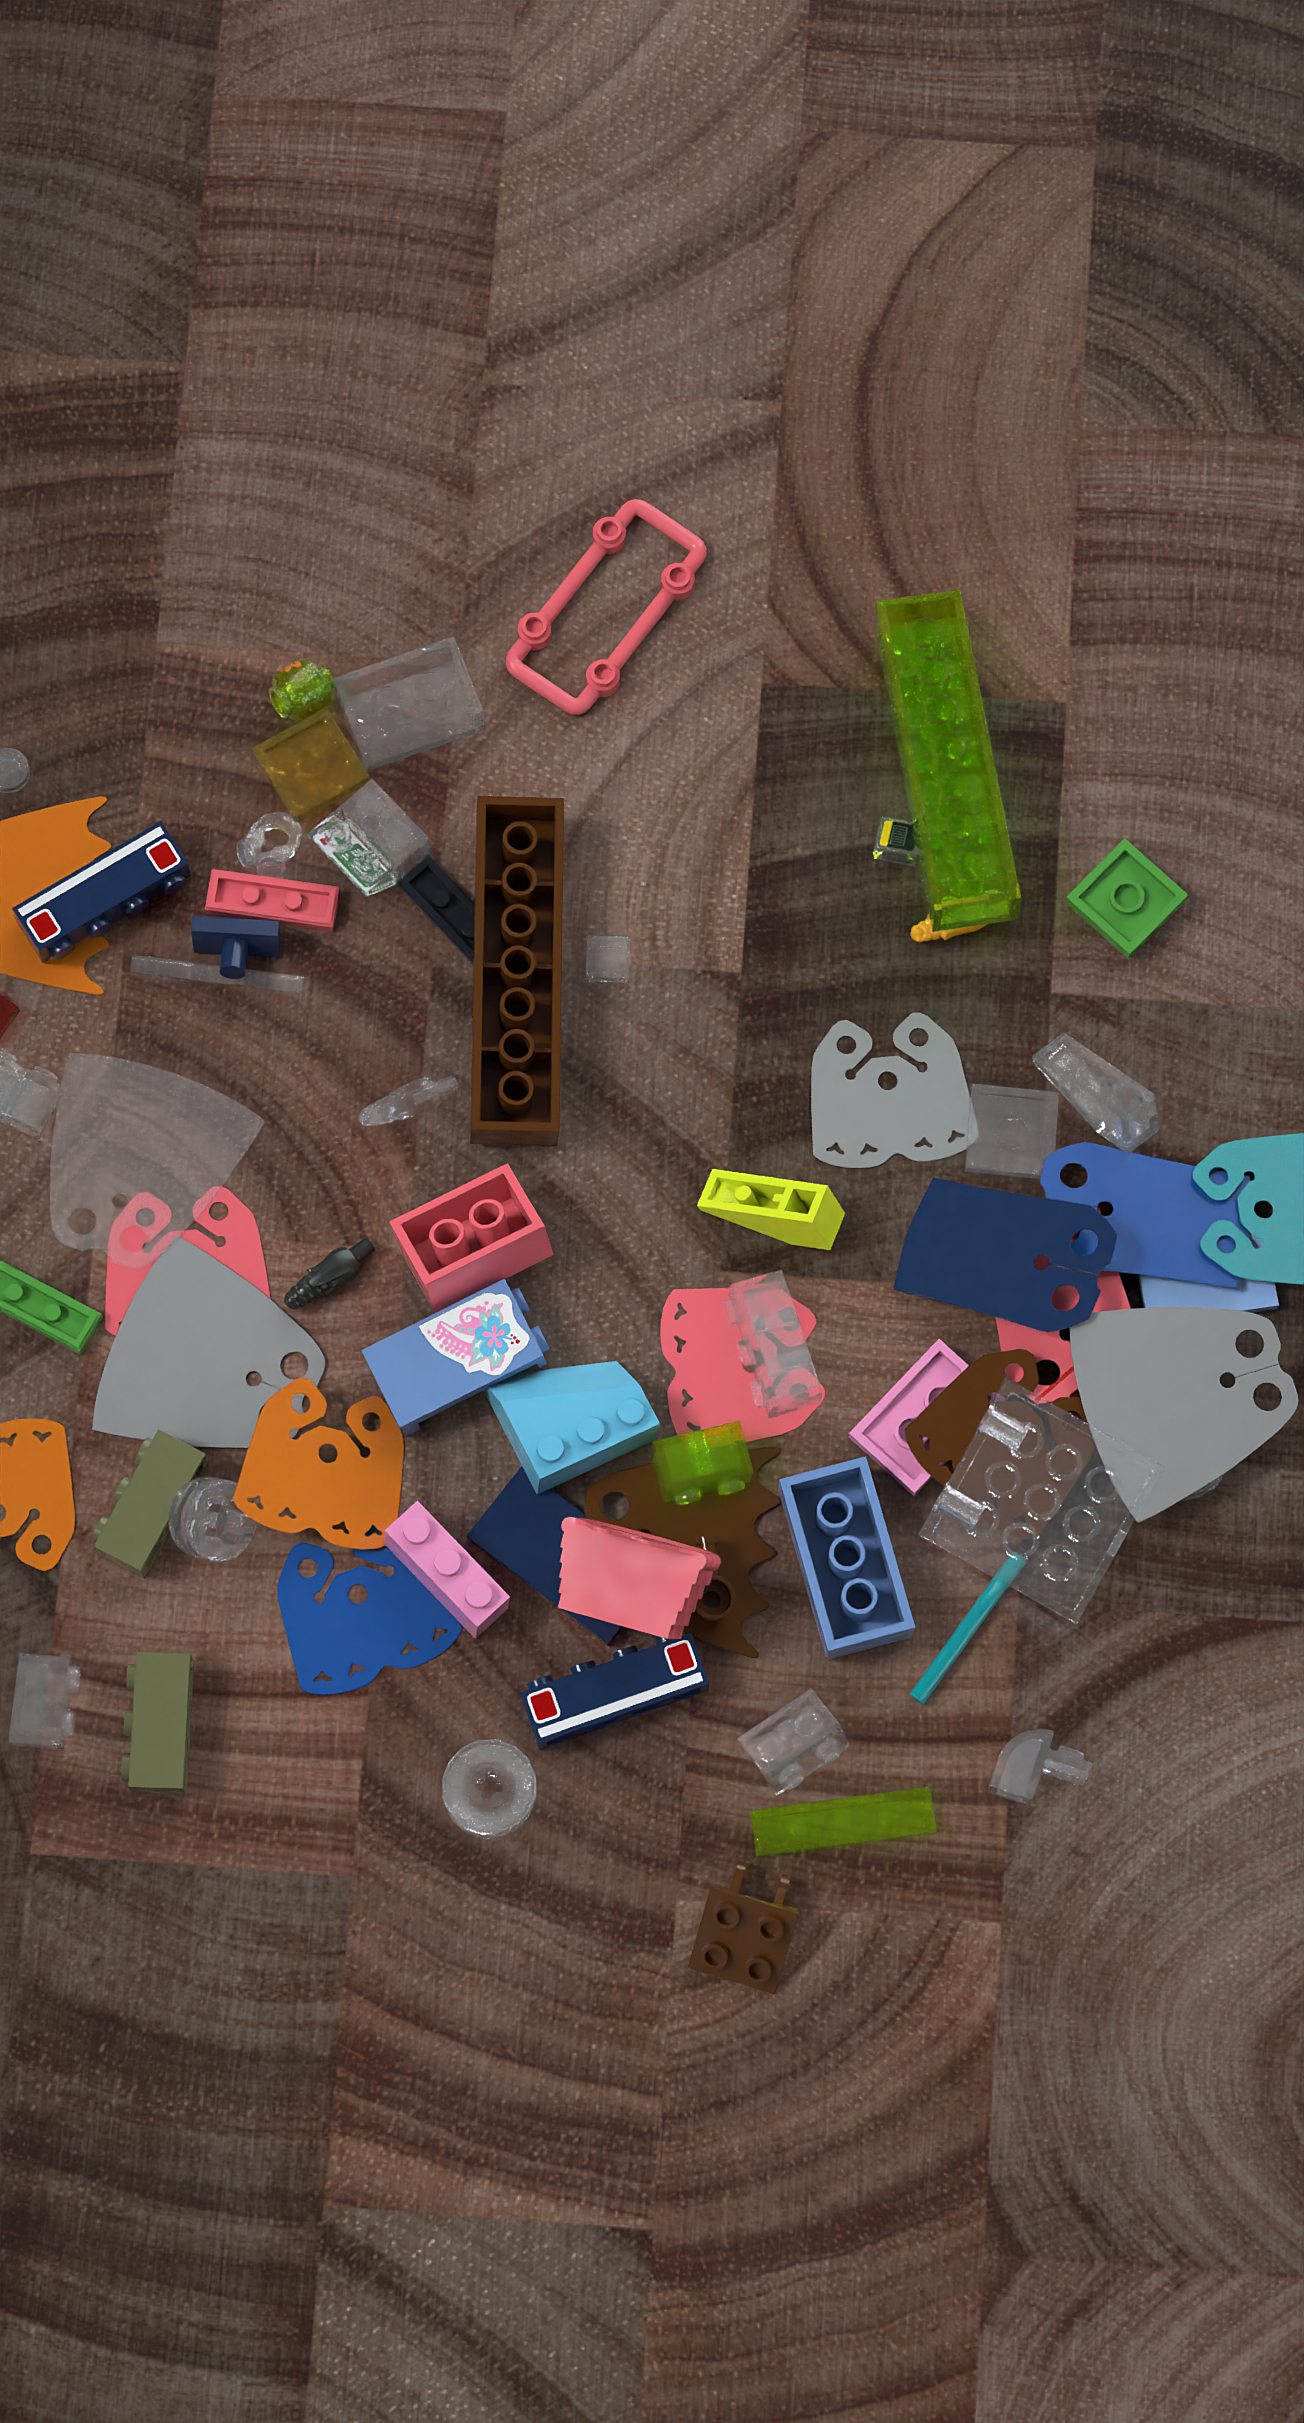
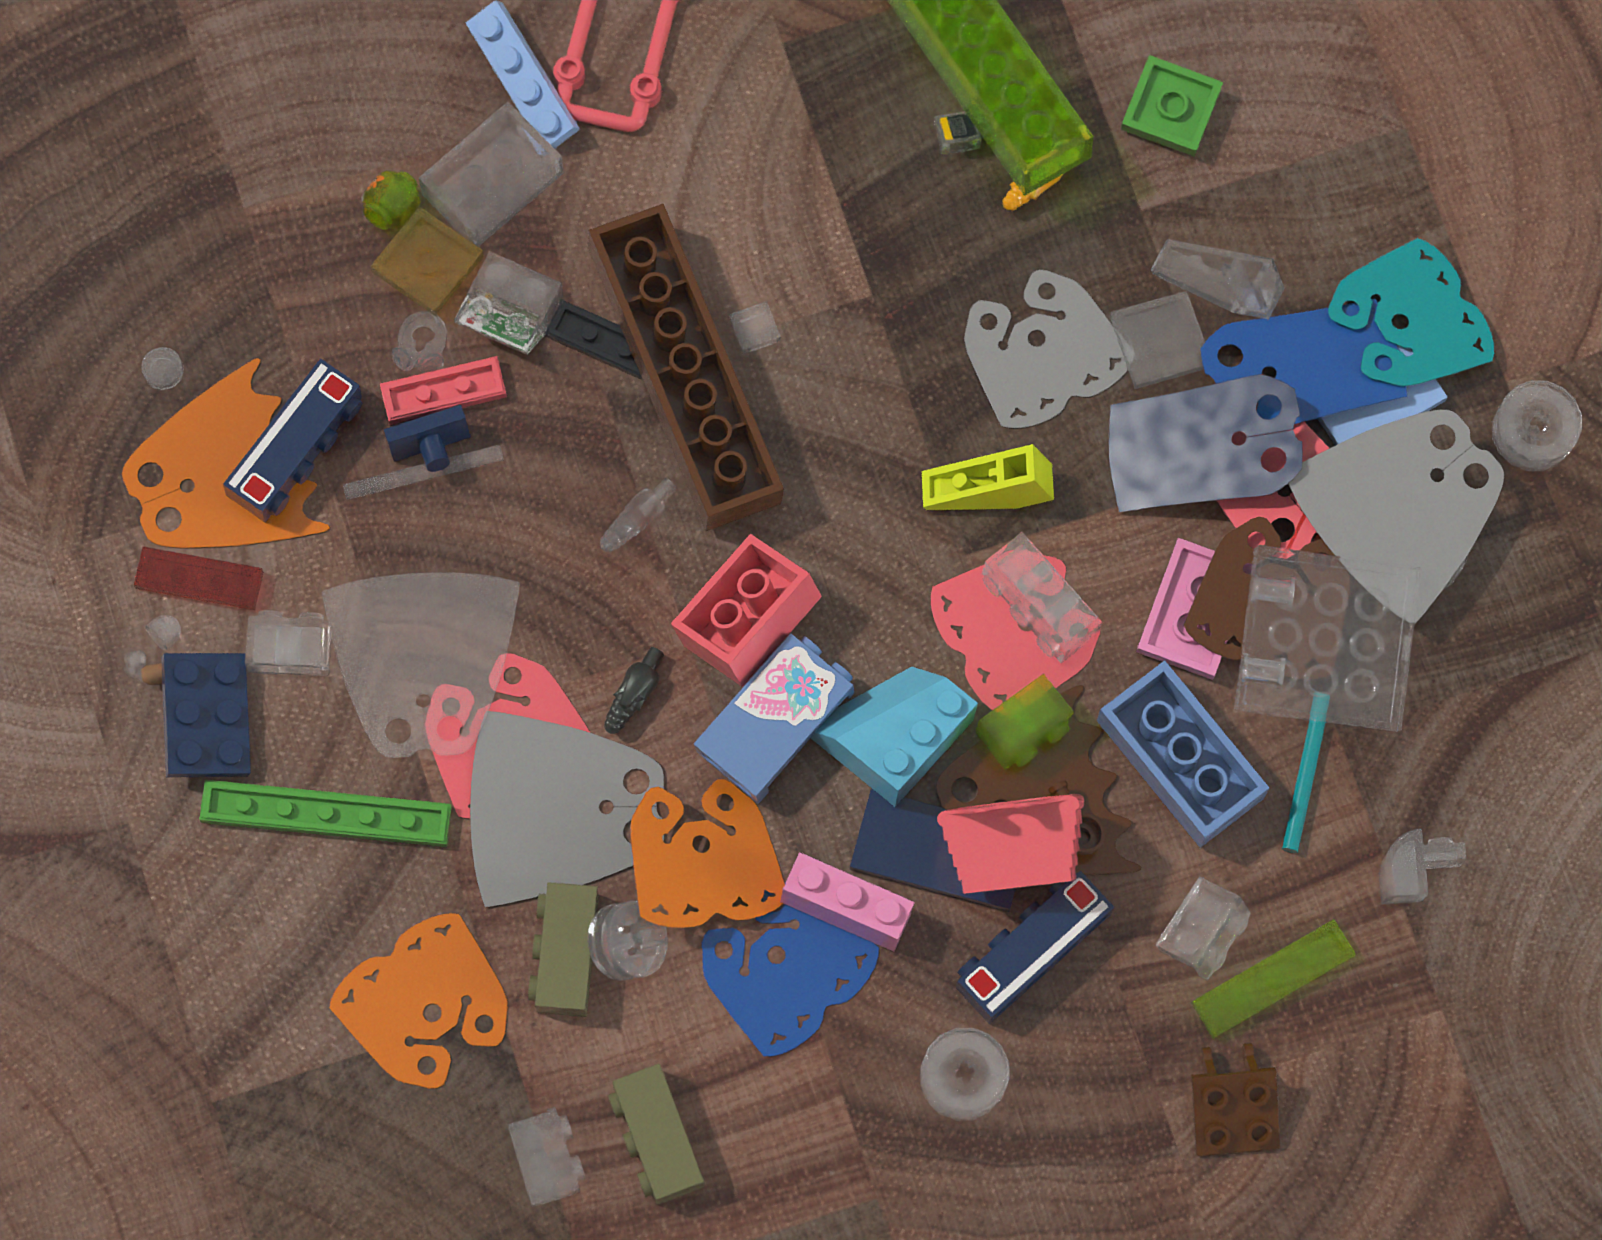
camera: 25 degrees left, 0 degrees up
(485, 616) = (522, 73): none -> light blue plate

